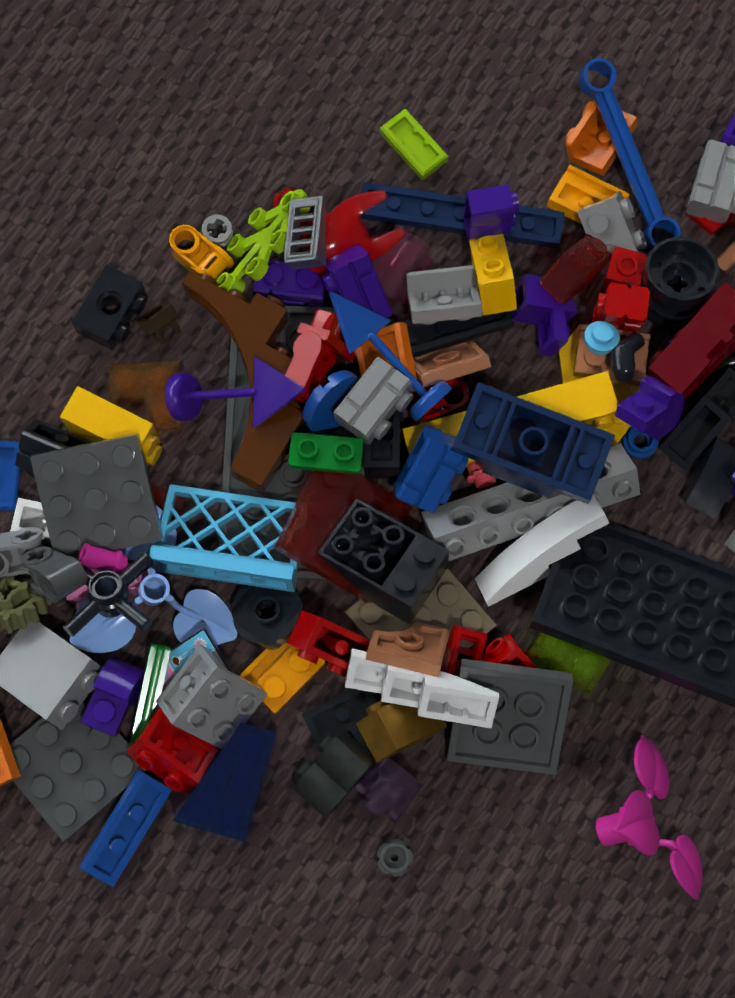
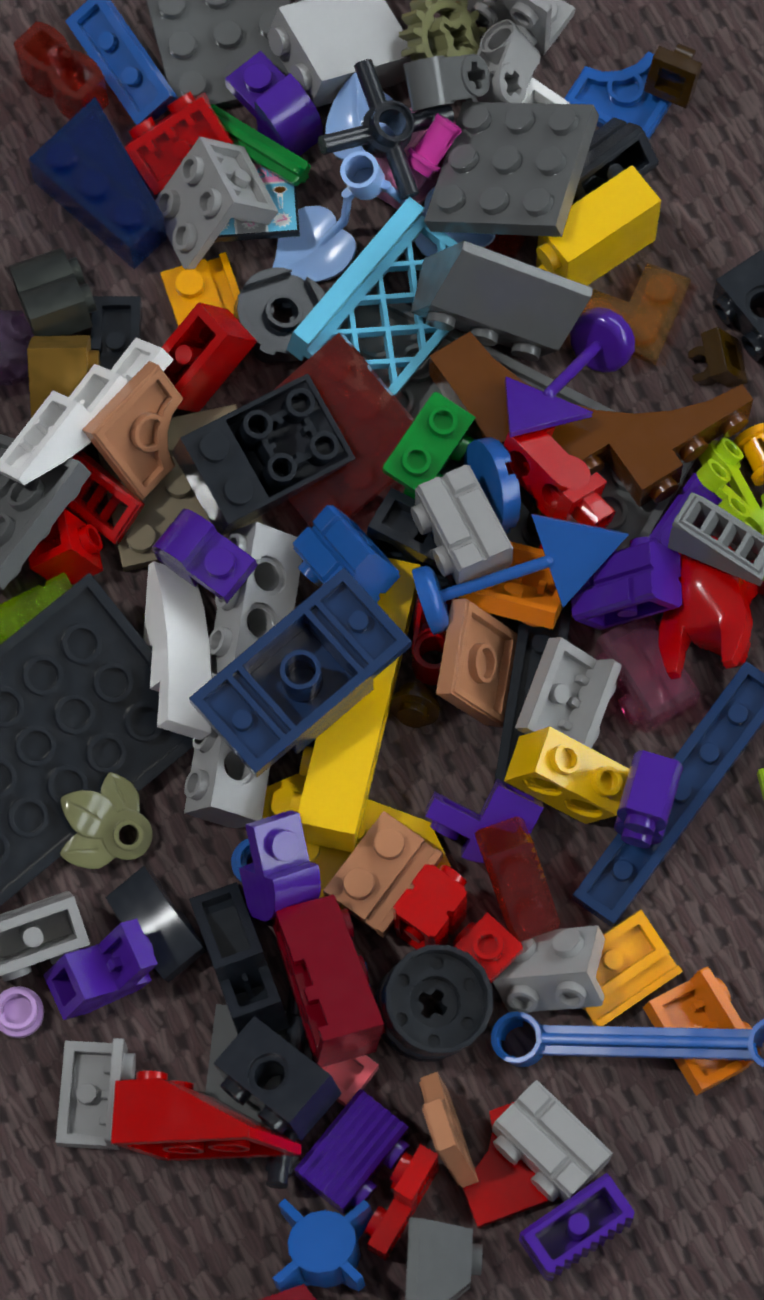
camera: 120 degrees right, 5 degrees down
(158, 870) = (58, 71): none -> clear red brick
(198, 465) = (498, 300): none -> dark grey slope
(475, 561) = (203, 555): none -> dark purple brick
(601, 337) = (404, 854): medium azure plate -> none
(623, 357) = (365, 867): black arm -> none
(670, 543) = (98, 822): none -> olive plate

